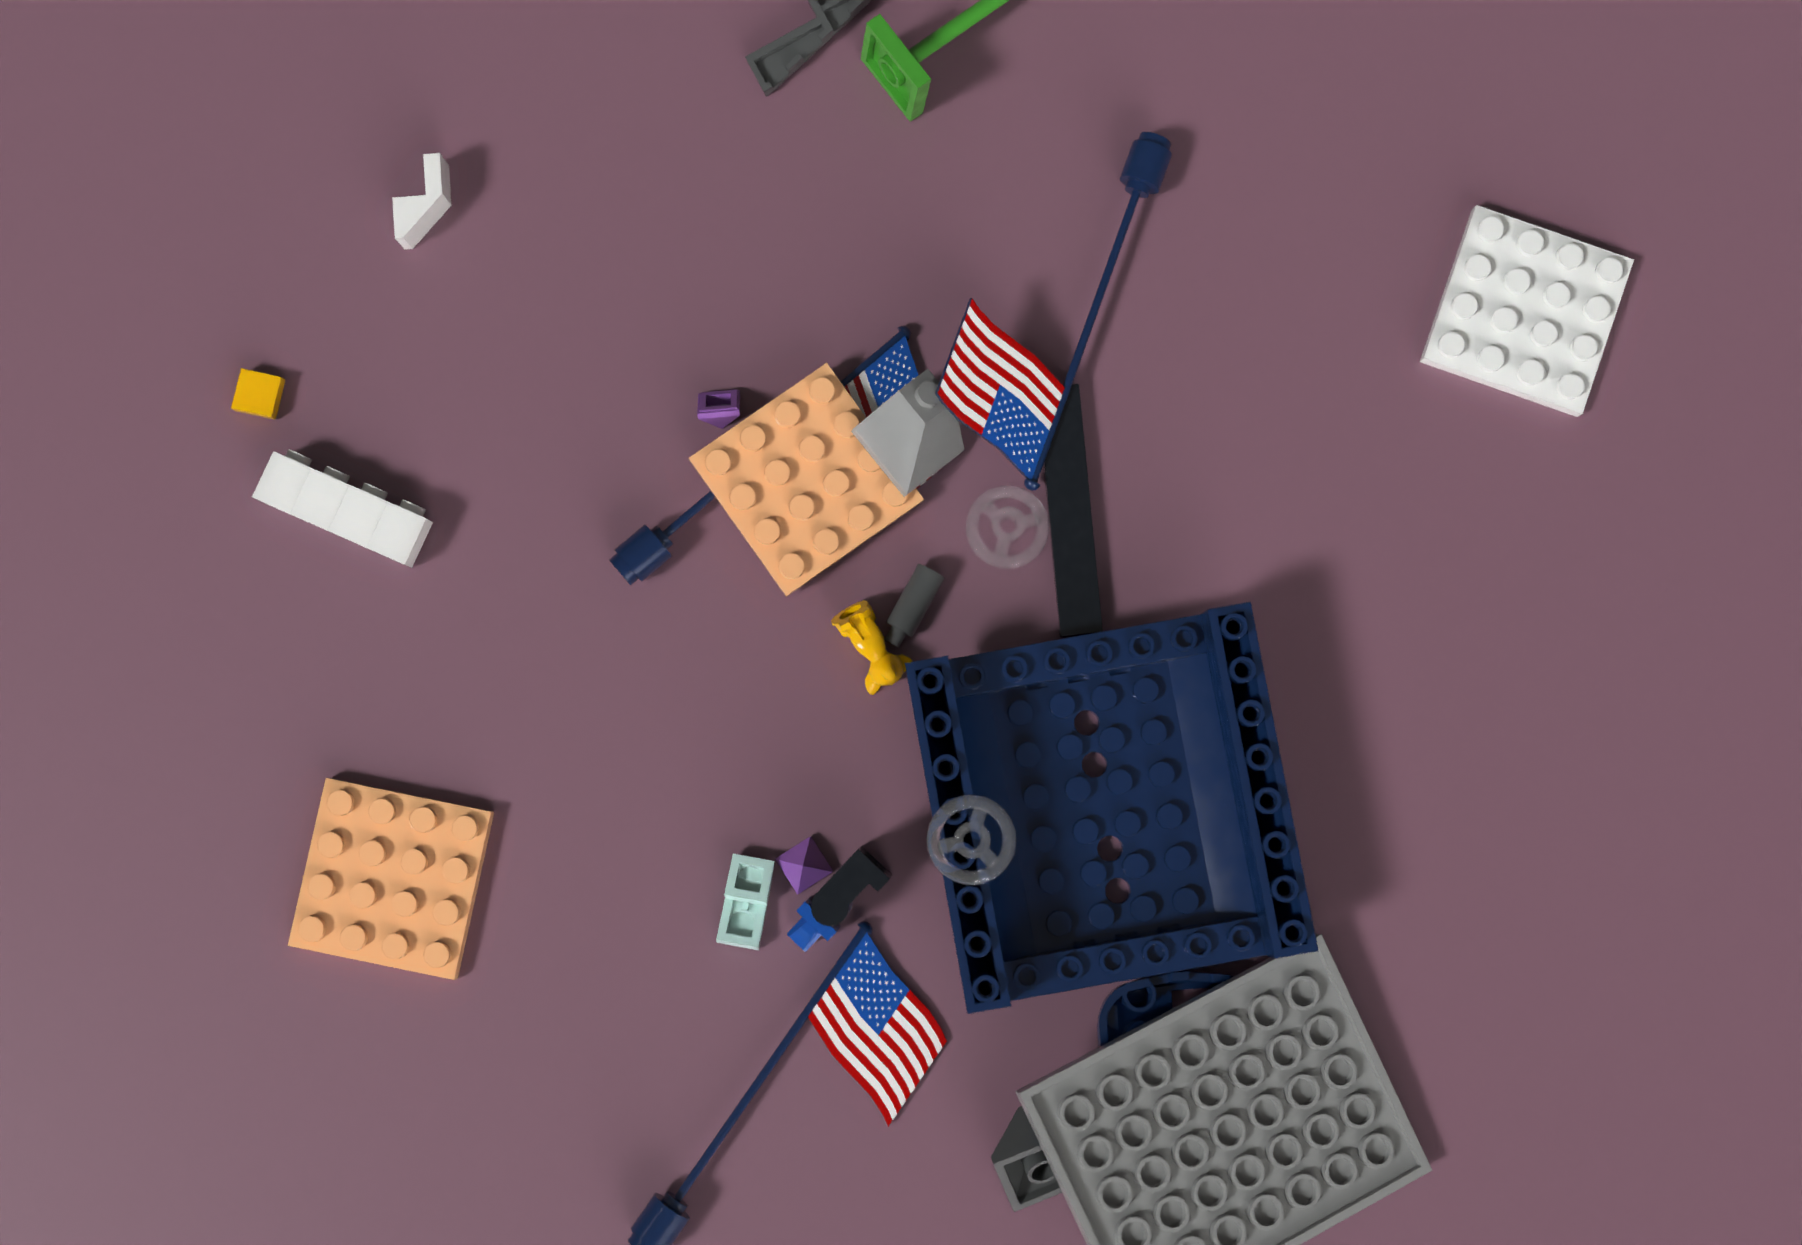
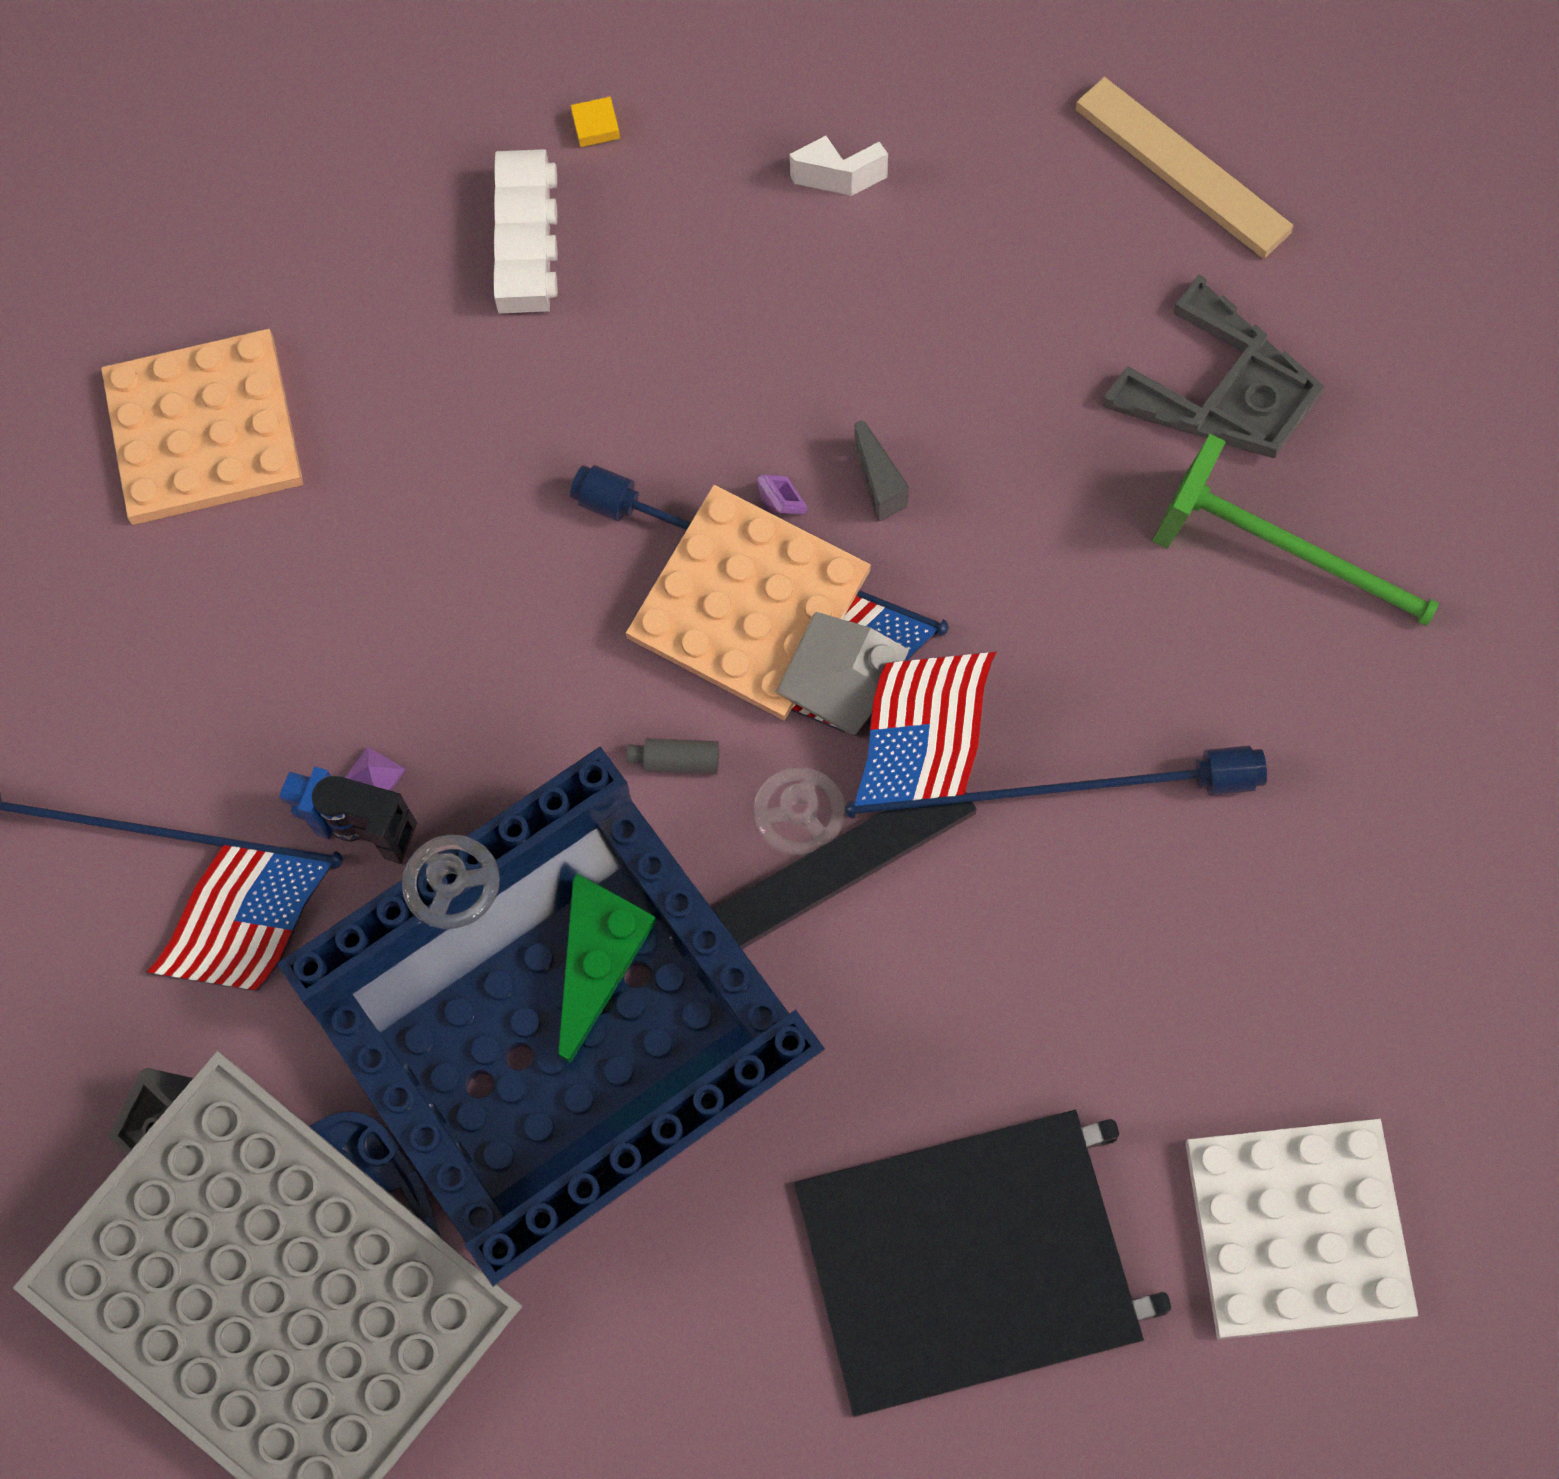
camera: 65 degrees right, 15 degrees down
(744, 314) = (883, 480): none -> dark grey slope
(745, 901) = (313, 740): light aqua slope -> none
(859, 625) = (620, 726): yellow animal -> none
(1058, 741) = (600, 949): none -> green wing
(1435, 571) = (970, 1262): none -> black flag

